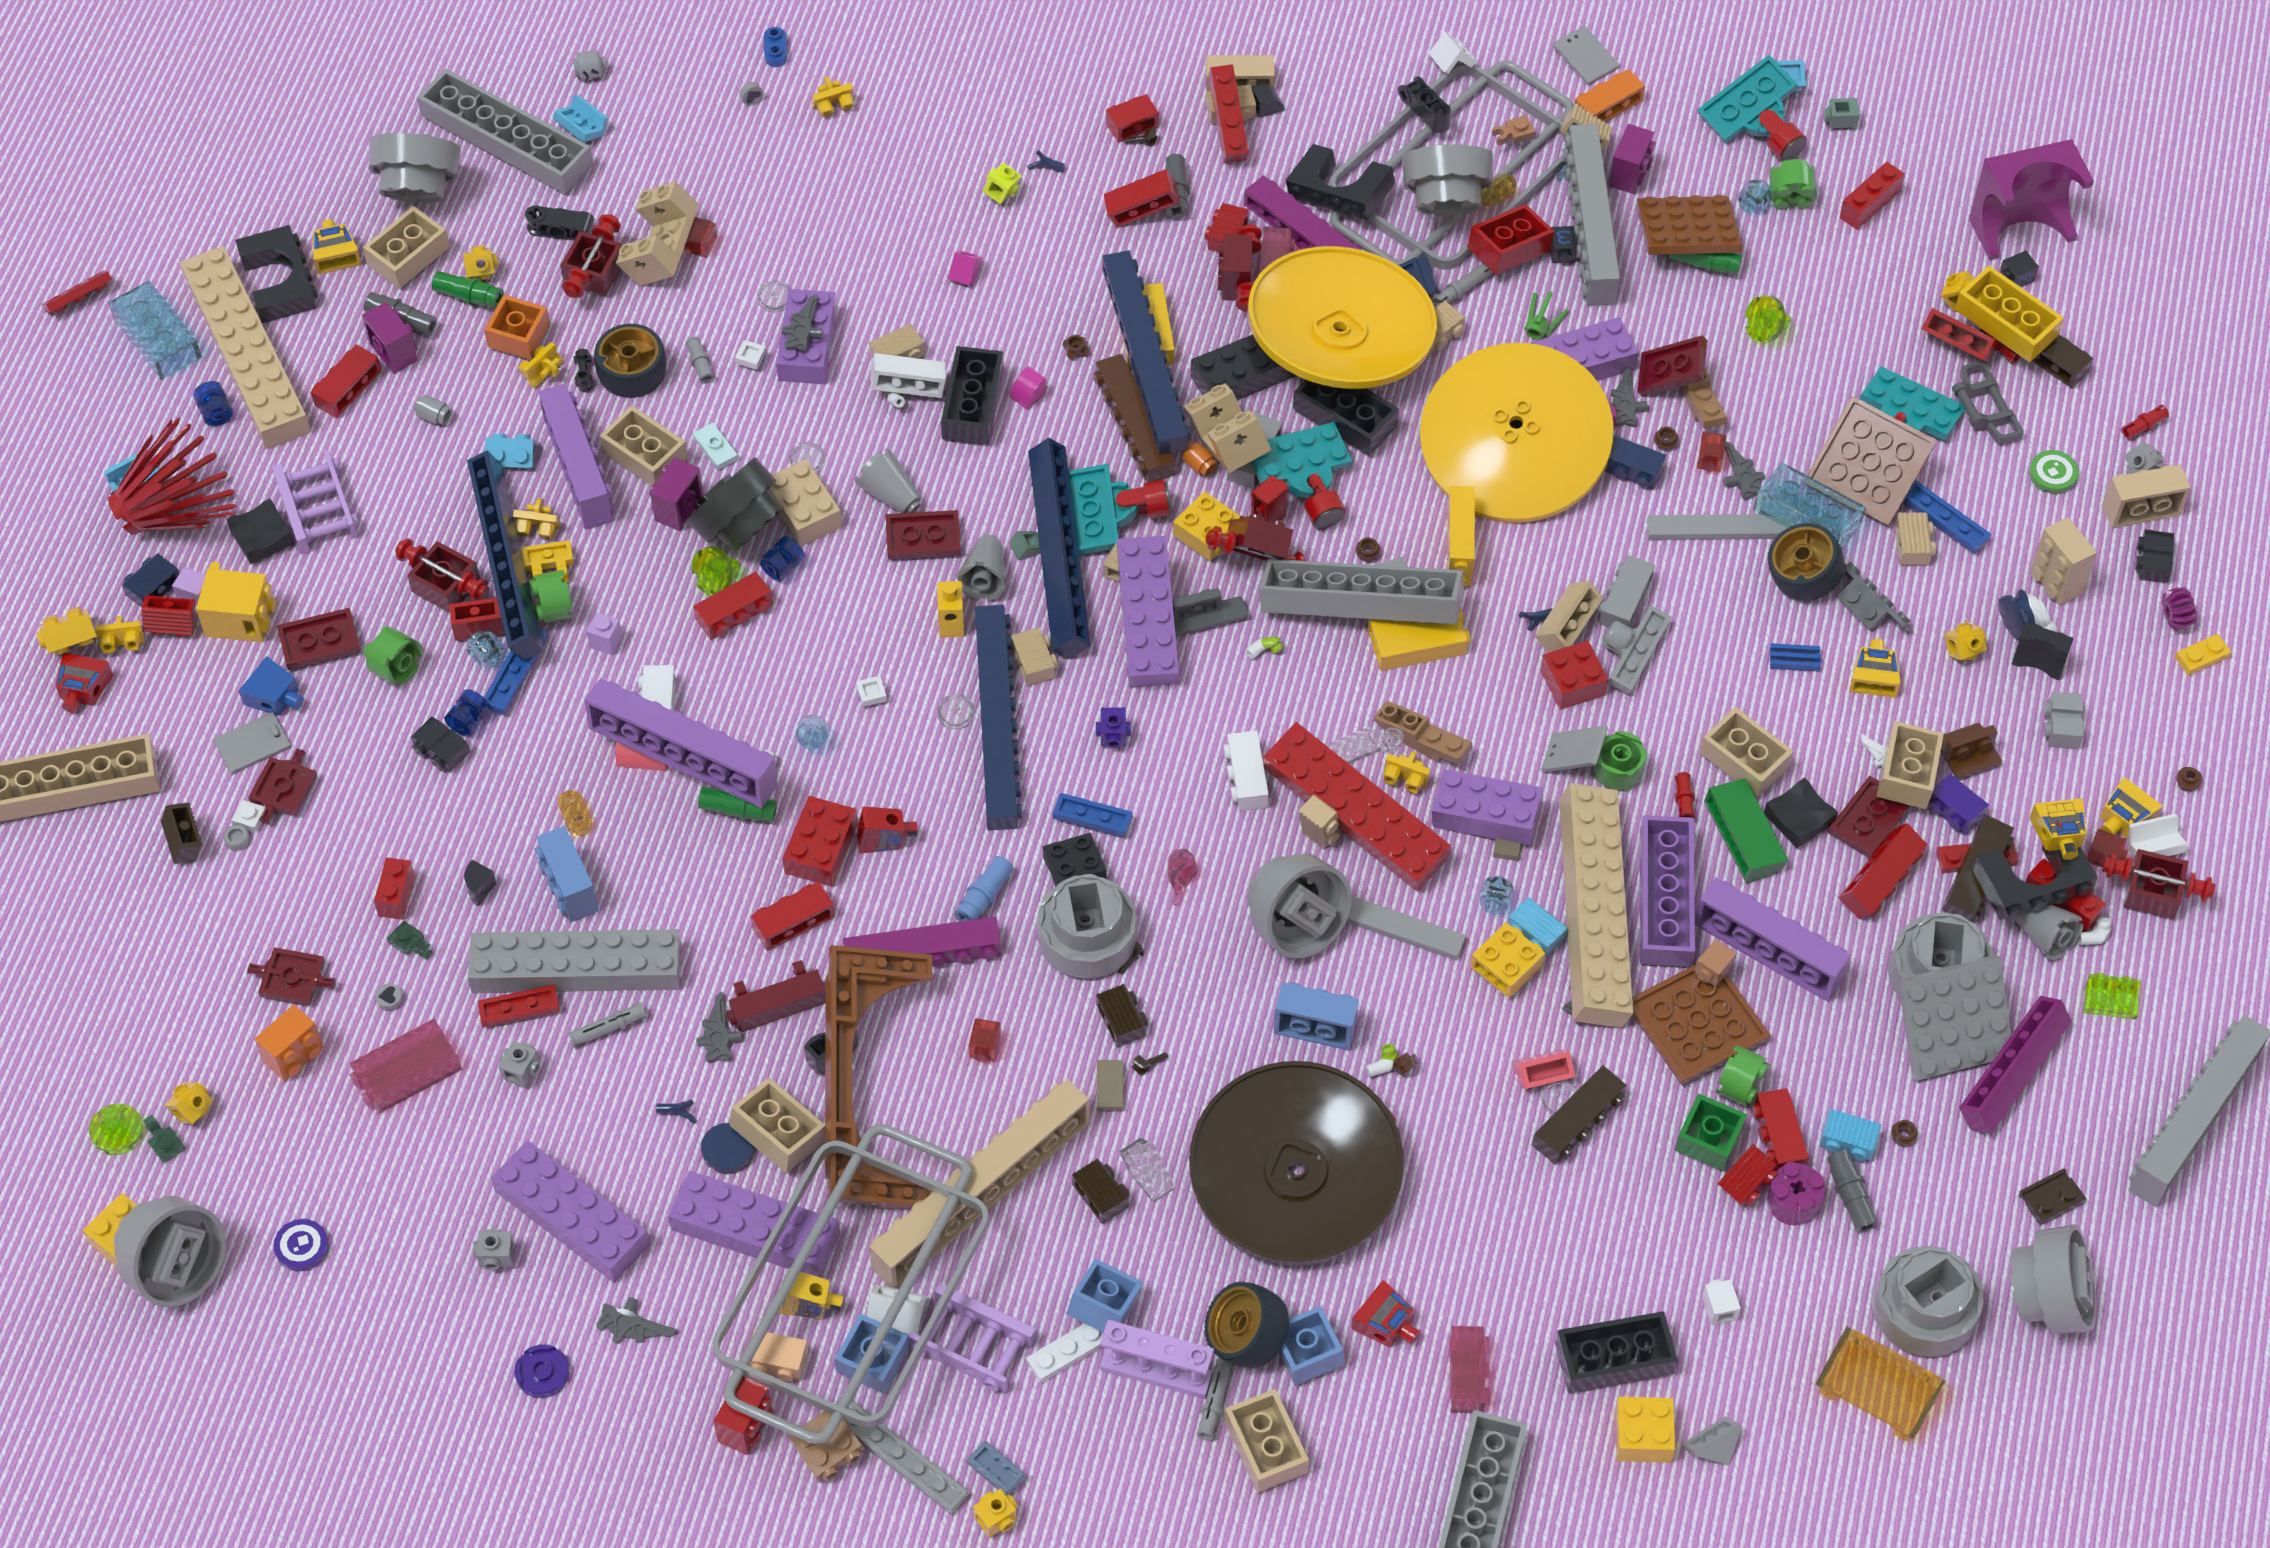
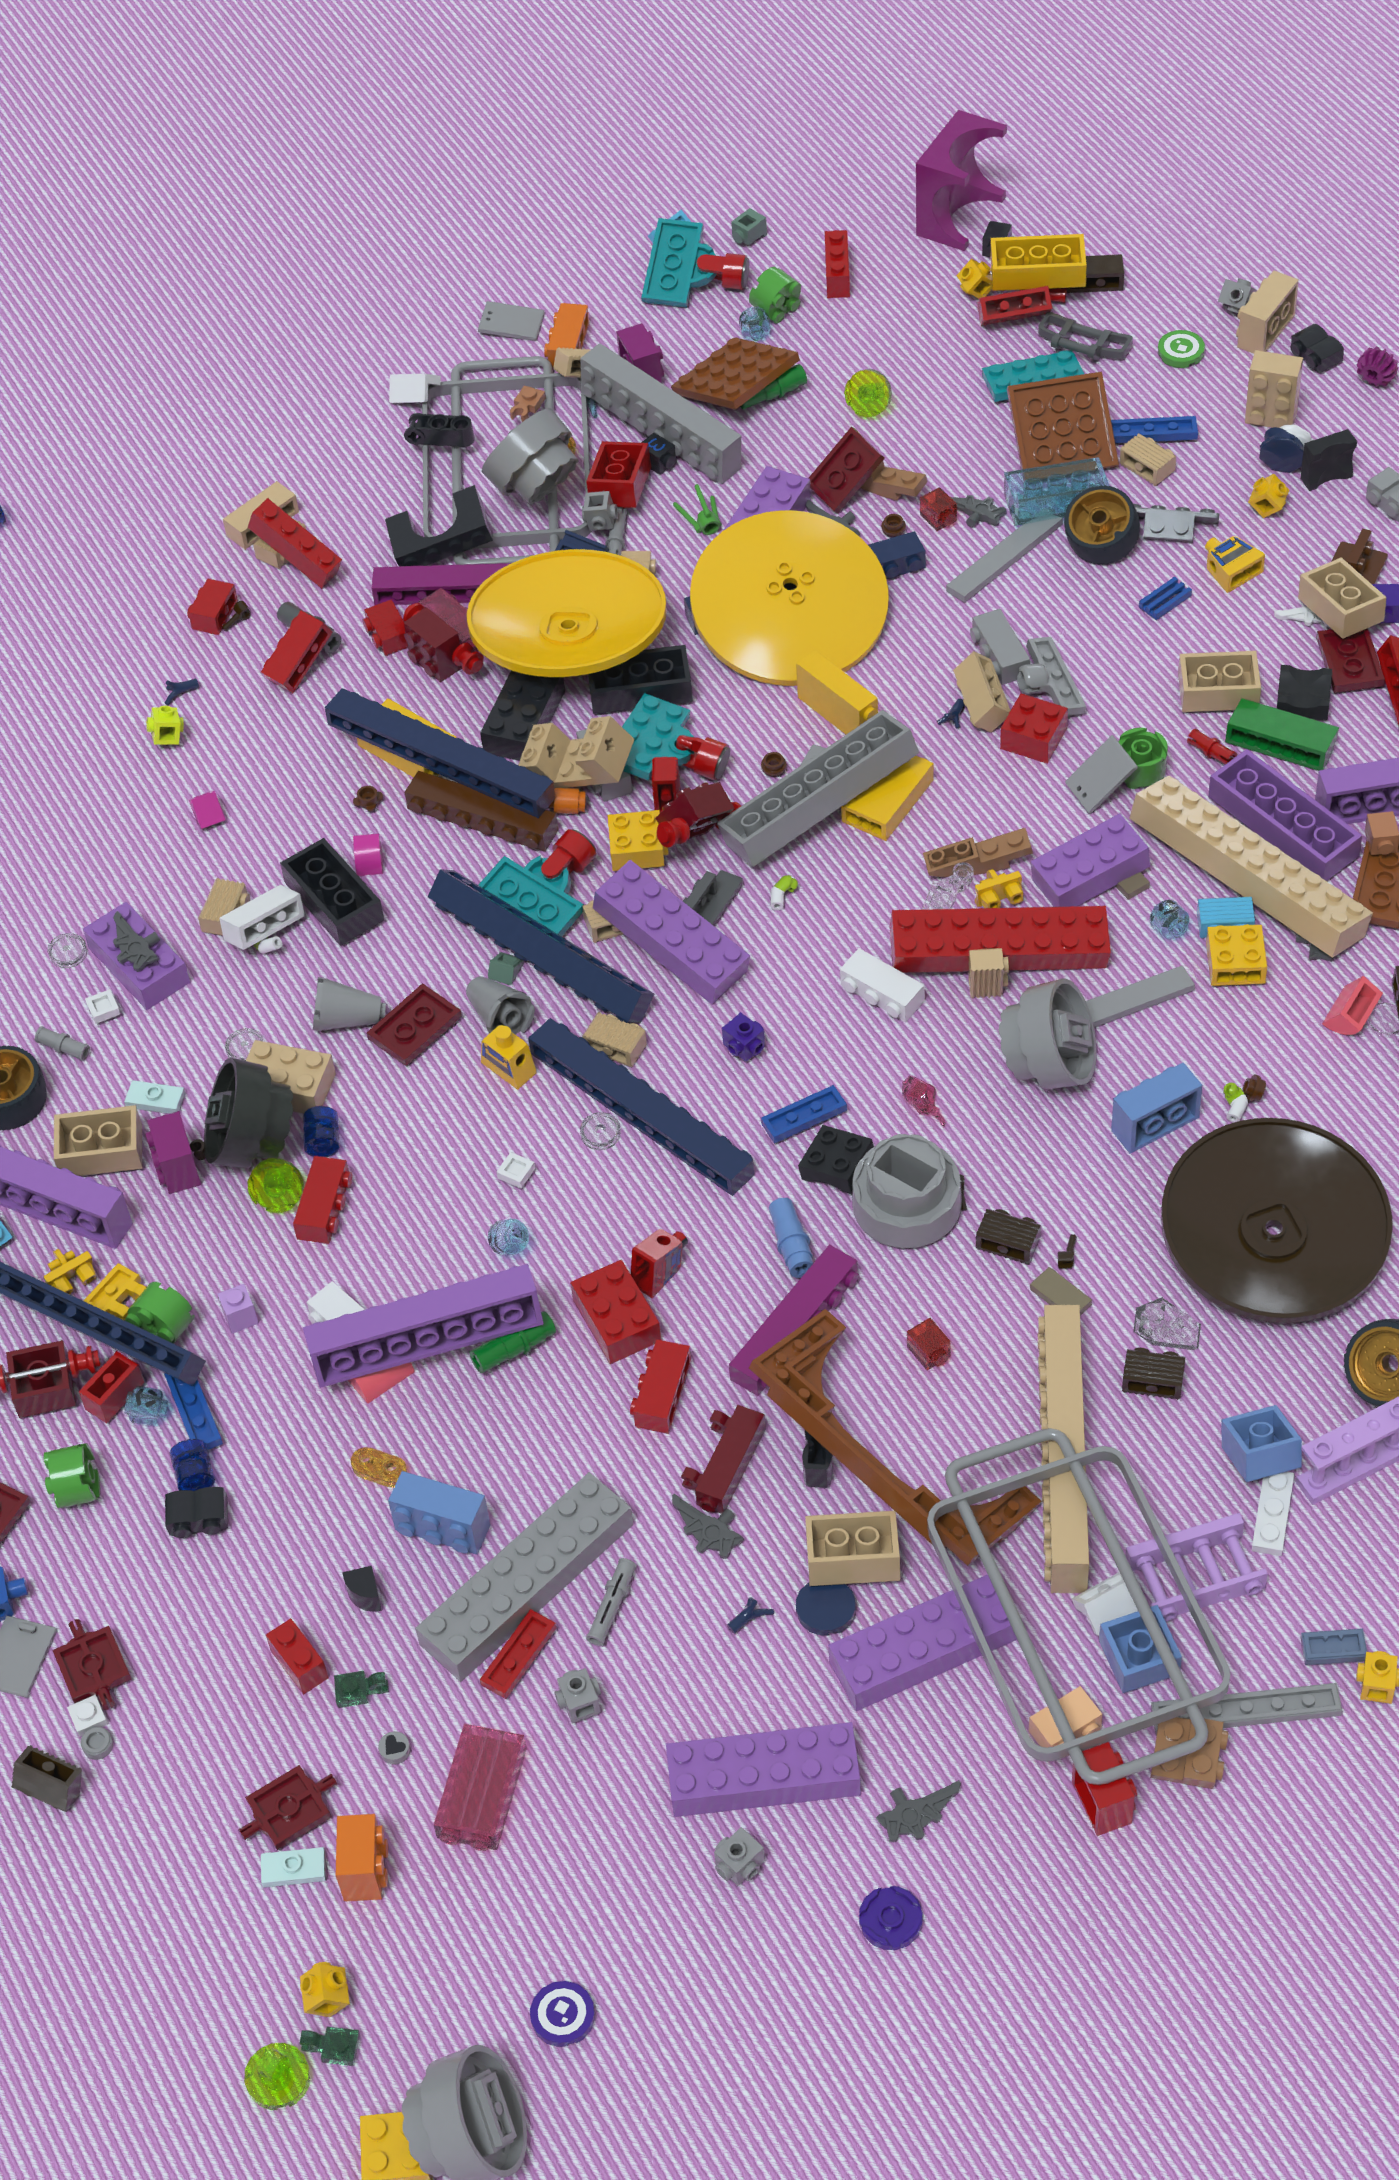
camera: 40 degrees left, 5 degrees down
(253, 1012) = (293, 1867): none -> light aqua plate
(810, 1297) = (1049, 1648): yellow torso -> none
(1267, 100) = (310, 517): black brick -> none
(1462, 257) = (599, 511): none -> light grey brick
(2145, 422) = (1200, 272): red pin -> none

